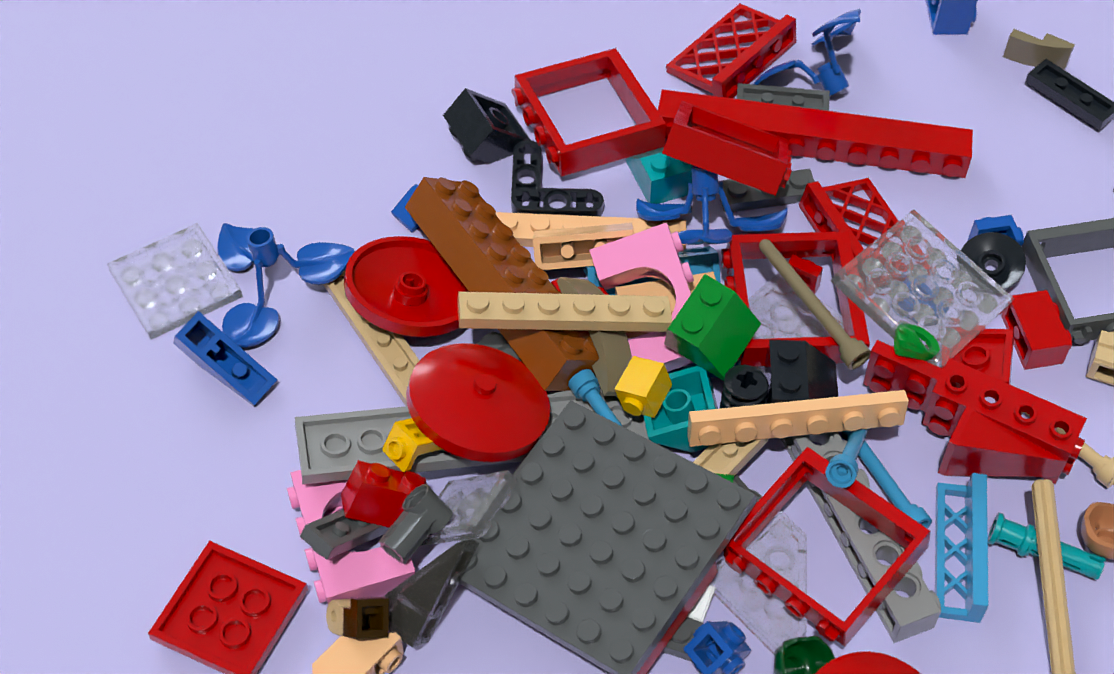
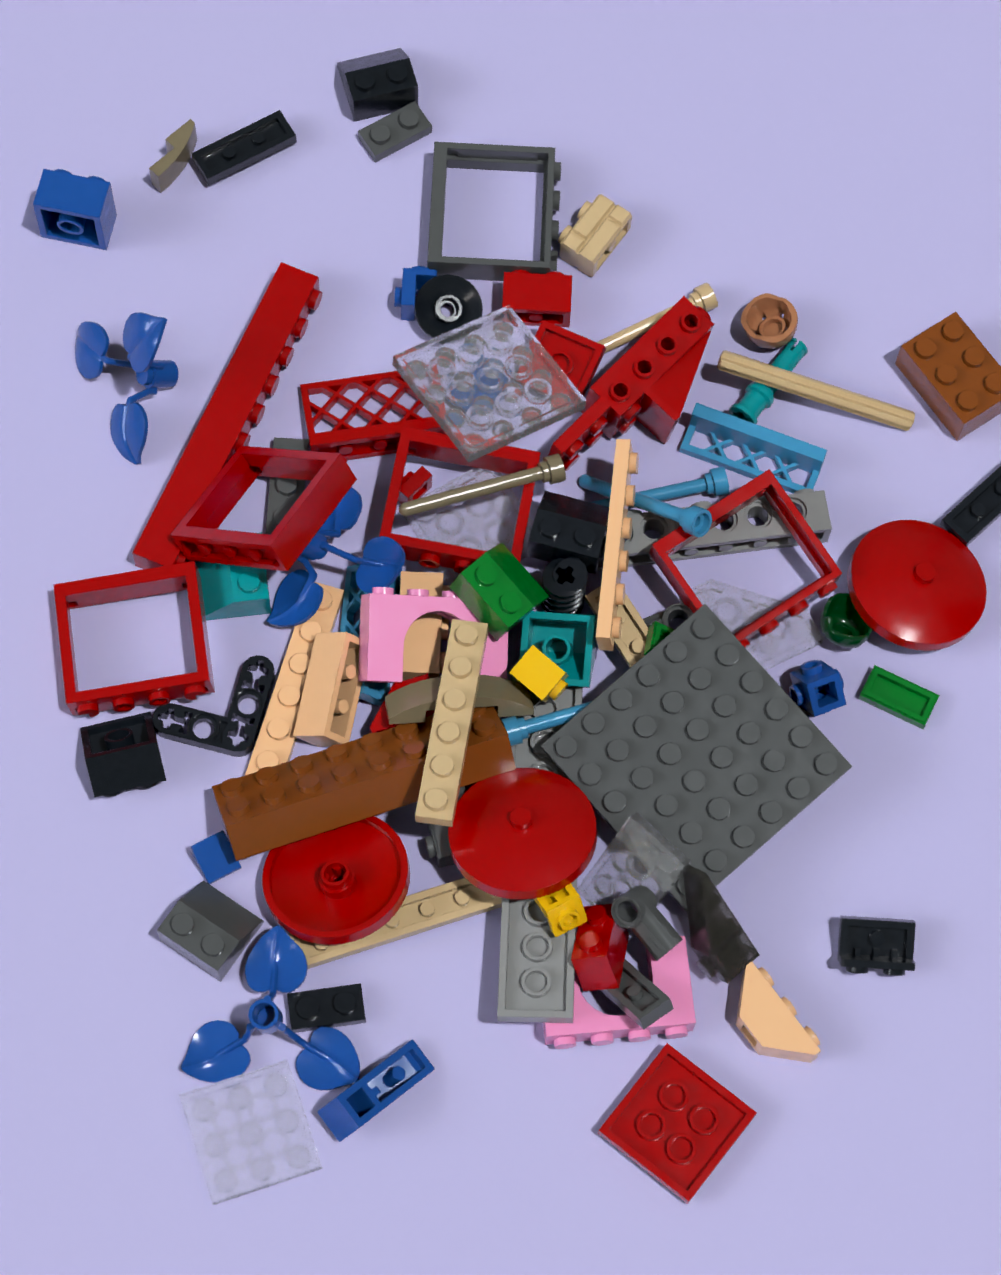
camera: 80 degrees left, 15 degrees up
(296, 314) = (326, 1008): none -> black plate
(346, 212) = (209, 929): none -> dark grey slope
(359, 617) = (723, 997): dark brown leg -> none
(748, 61) = (103, 452): red fence -> none
(784, 96) = (171, 434): dark grey plate -> none
(908, 342) = (568, 418): green piece -> none

